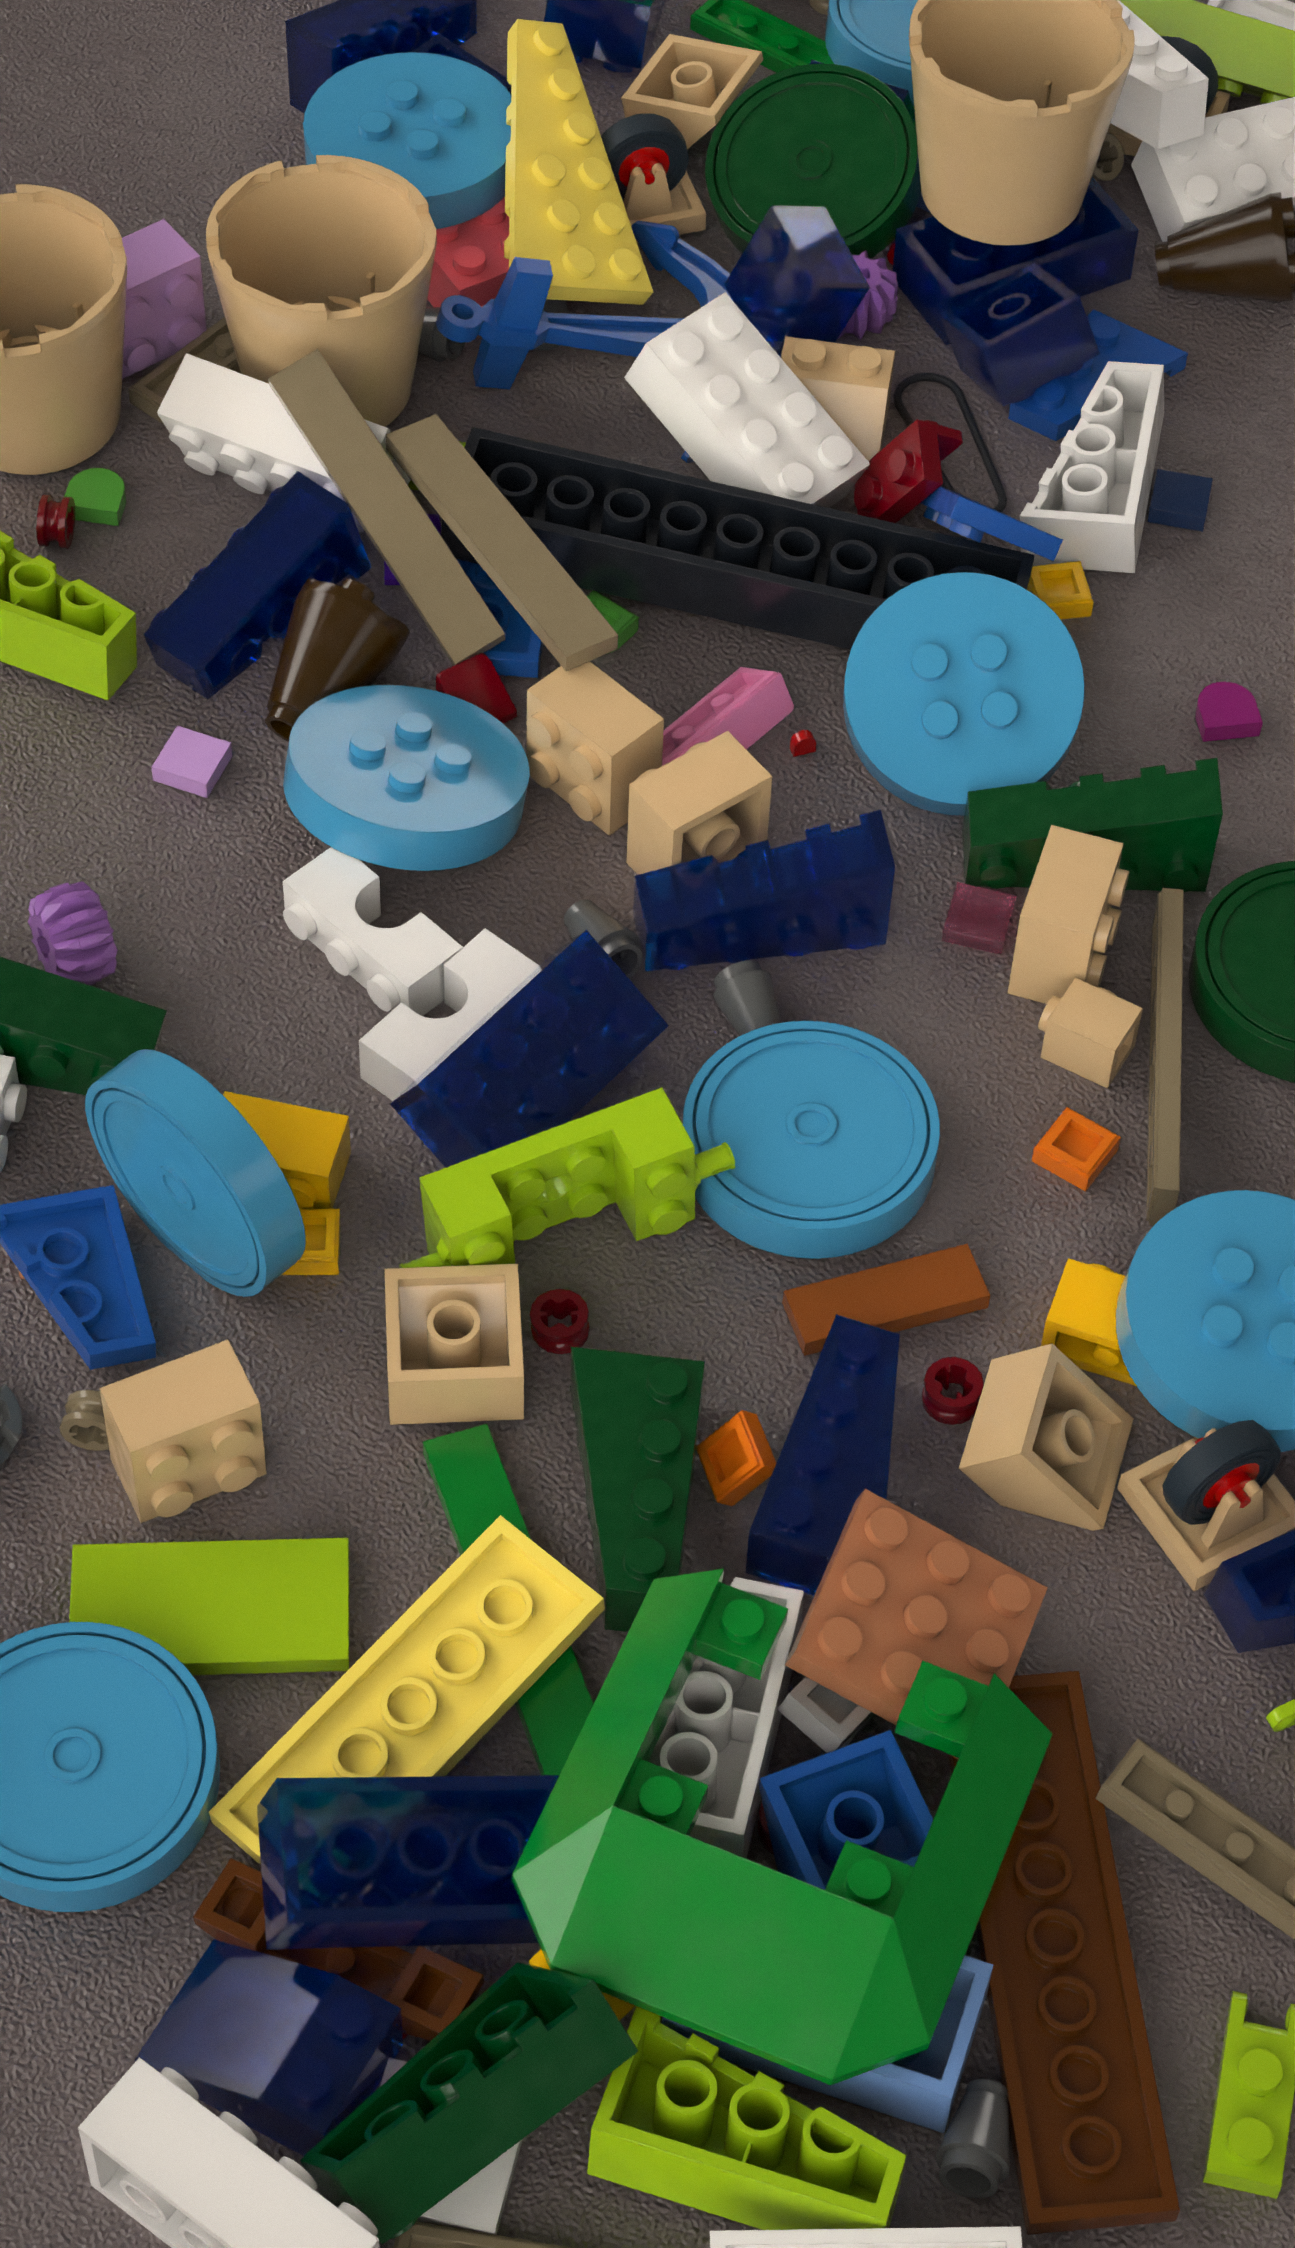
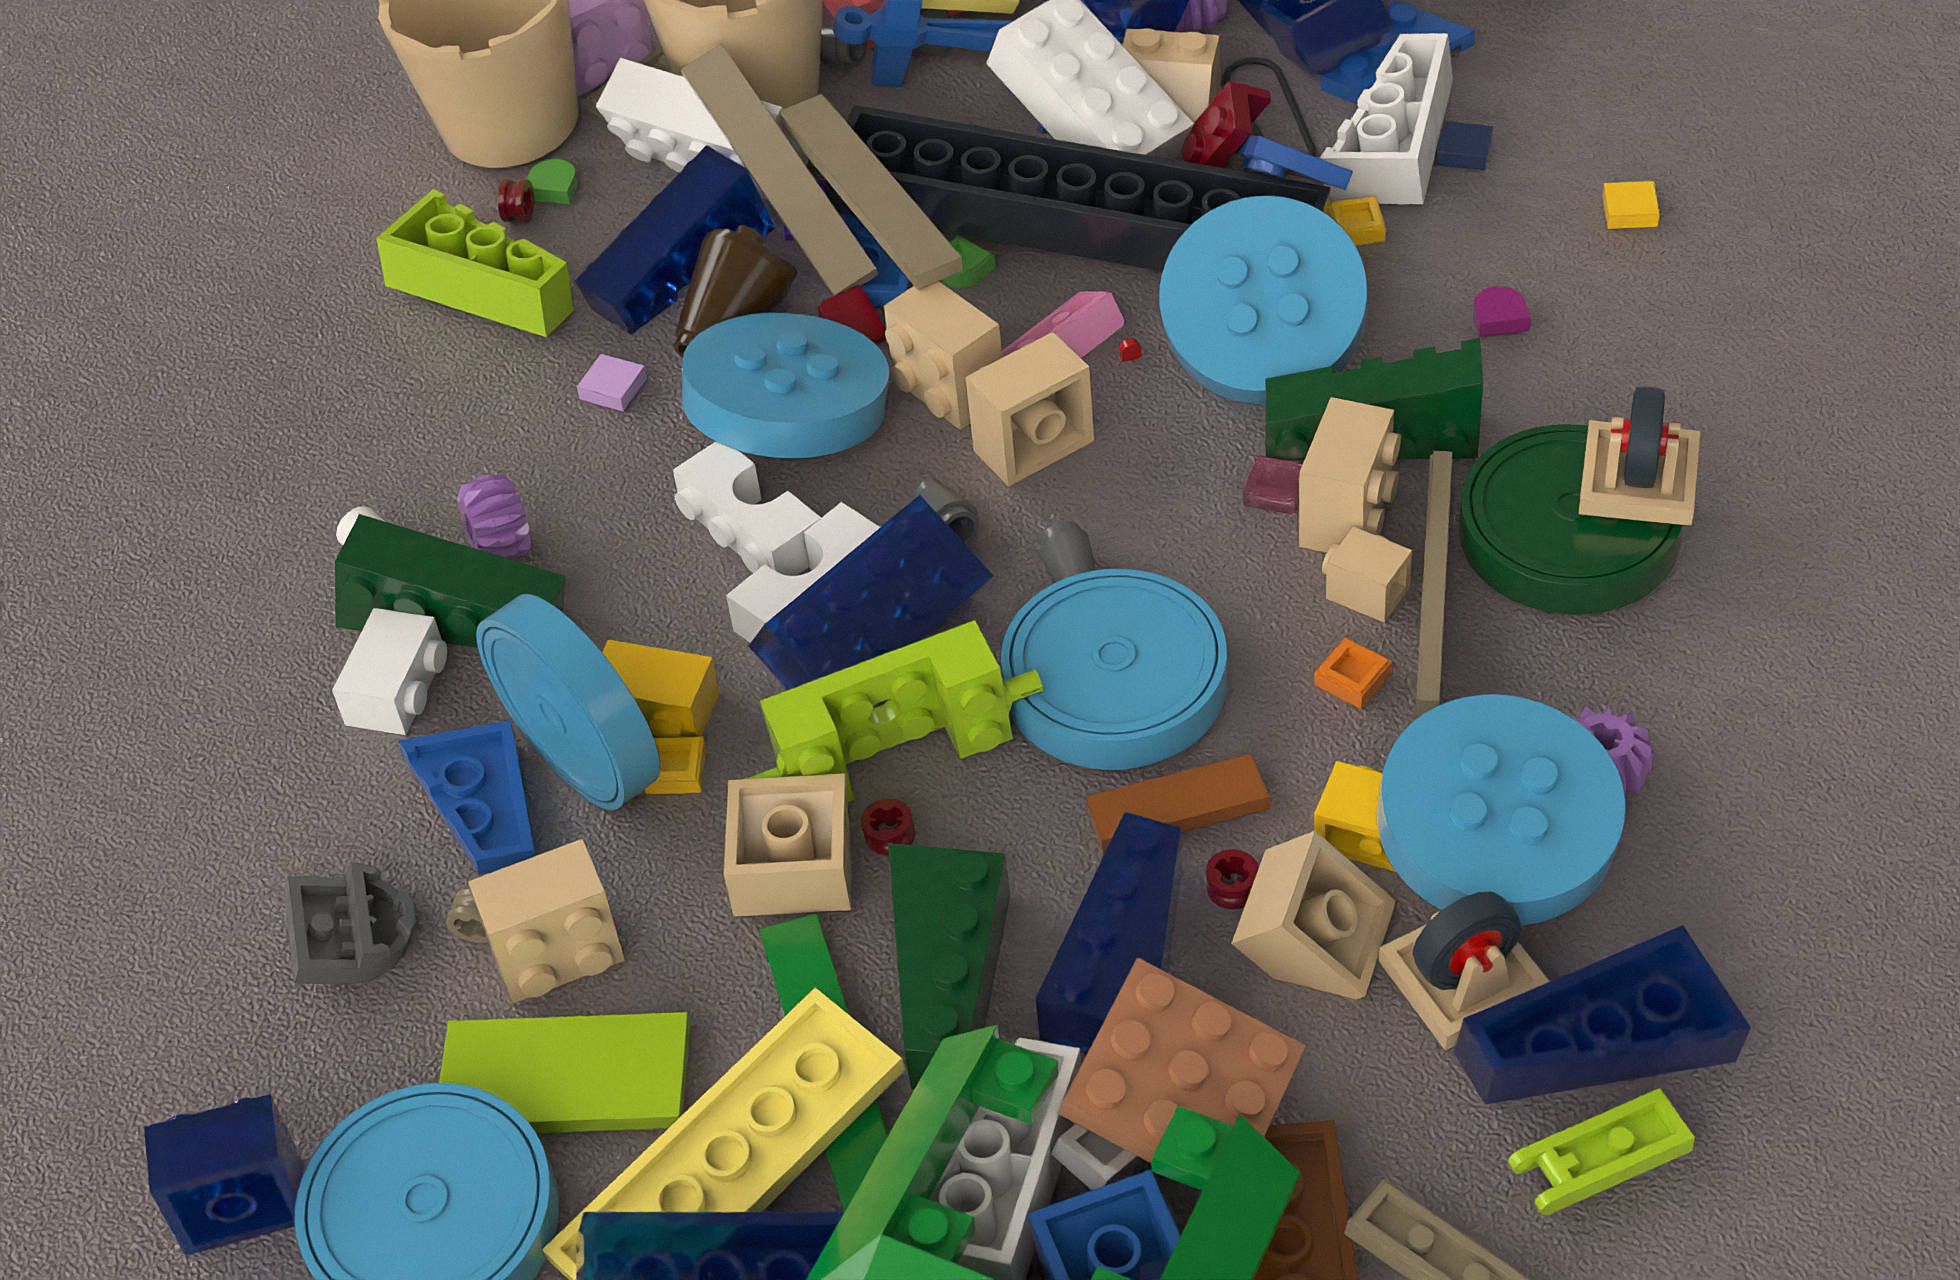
camera: 10 degrees right, 5 degrees down
(736, 1458) = (1033, 938): orange tile -> none
(769, 900) = (1090, 473): clear blue wedge -> none

